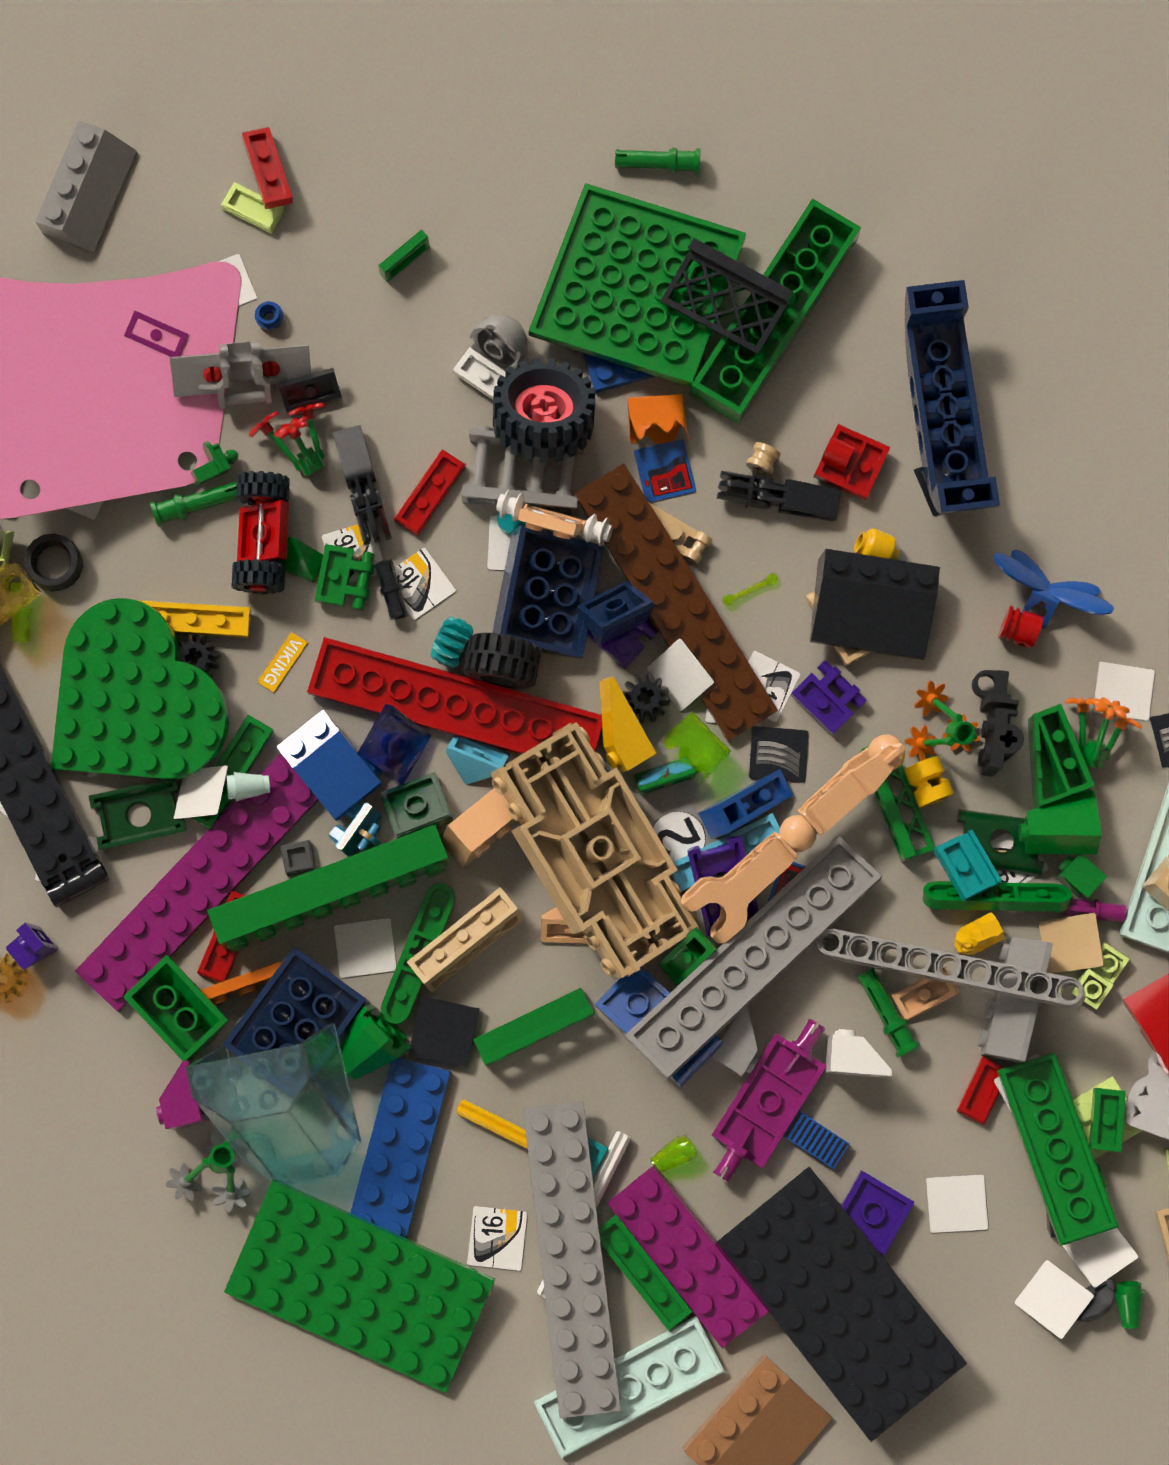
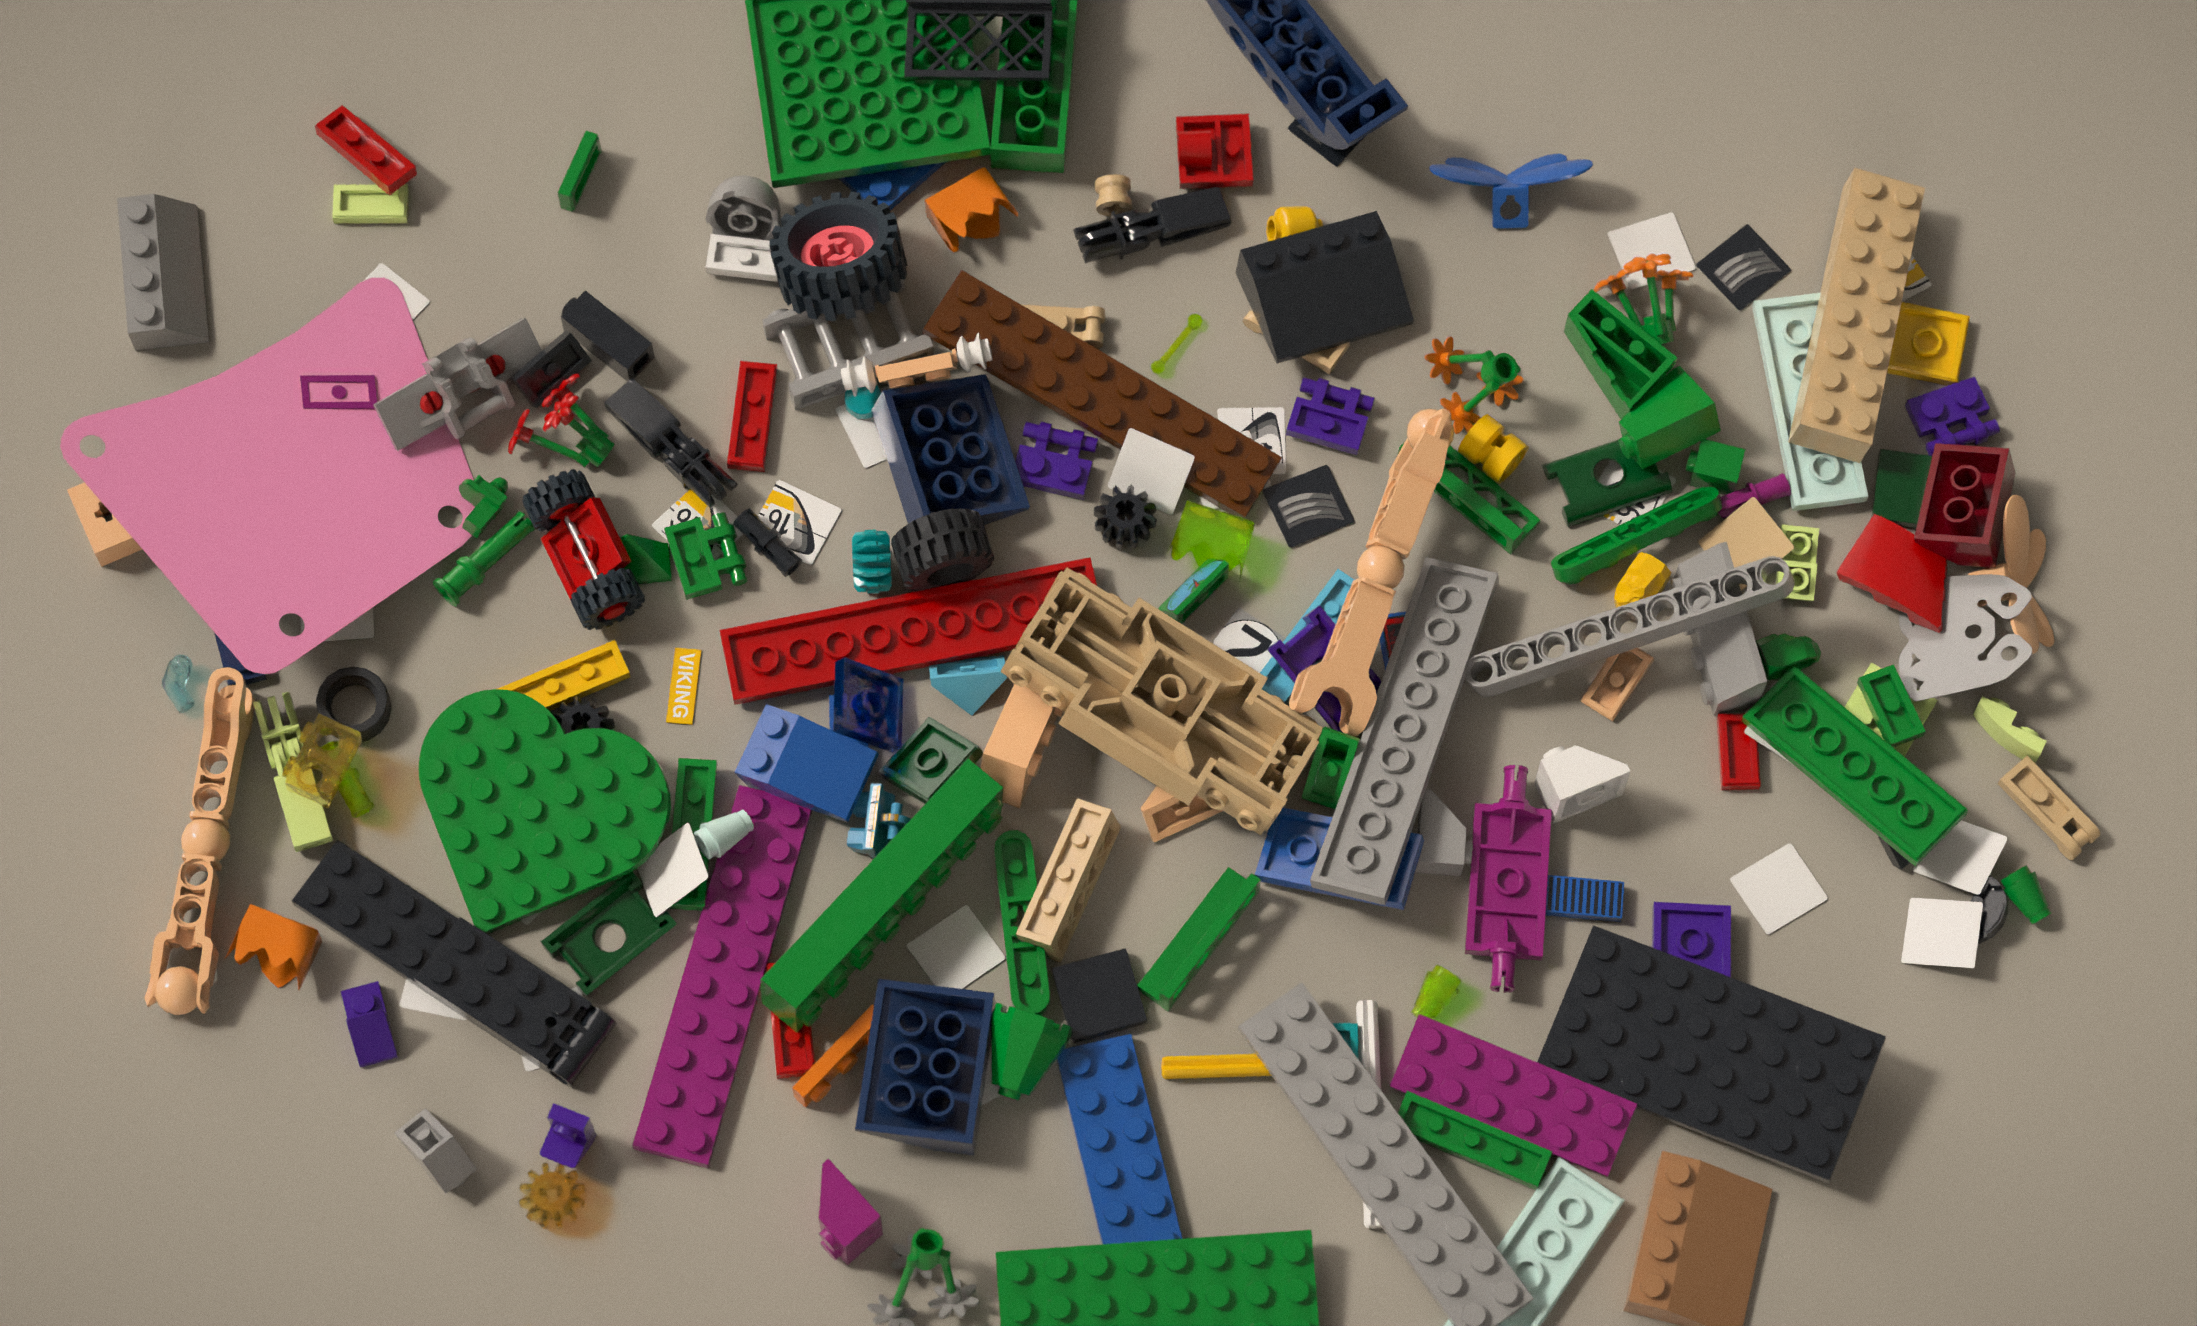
camera: 30 degrees left, 10 degrees down
(176, 1009) = (779, 1118): green slope -> none
(269, 307) = (454, 302): blue plate -> none
(282, 1107) = (967, 1157): clear light blue windscreen -> none
(297, 857) = (820, 889): dark grey tile -> none
(359, 385) = (607, 336): none -> black brick
(497, 1238) = (1286, 1192): sticker -> none
(615, 611) = (1042, 435): dark blue slope -> none
(622, 732) = (1117, 559): yellow slope -> none
(664, 470) = (1008, 262): sticker -> none
(745, 804) = (1302, 575): blue slope -> none
(894, 1025) = (1601, 729): green pin -> none
(967, 865) = (1586, 514): teal plate -> none
(997, 723) = (1541, 356): black plate -> none
(1020, 627) = (1501, 235): red piece -> none
(1054, 1037) = (1783, 651): none -> green rock

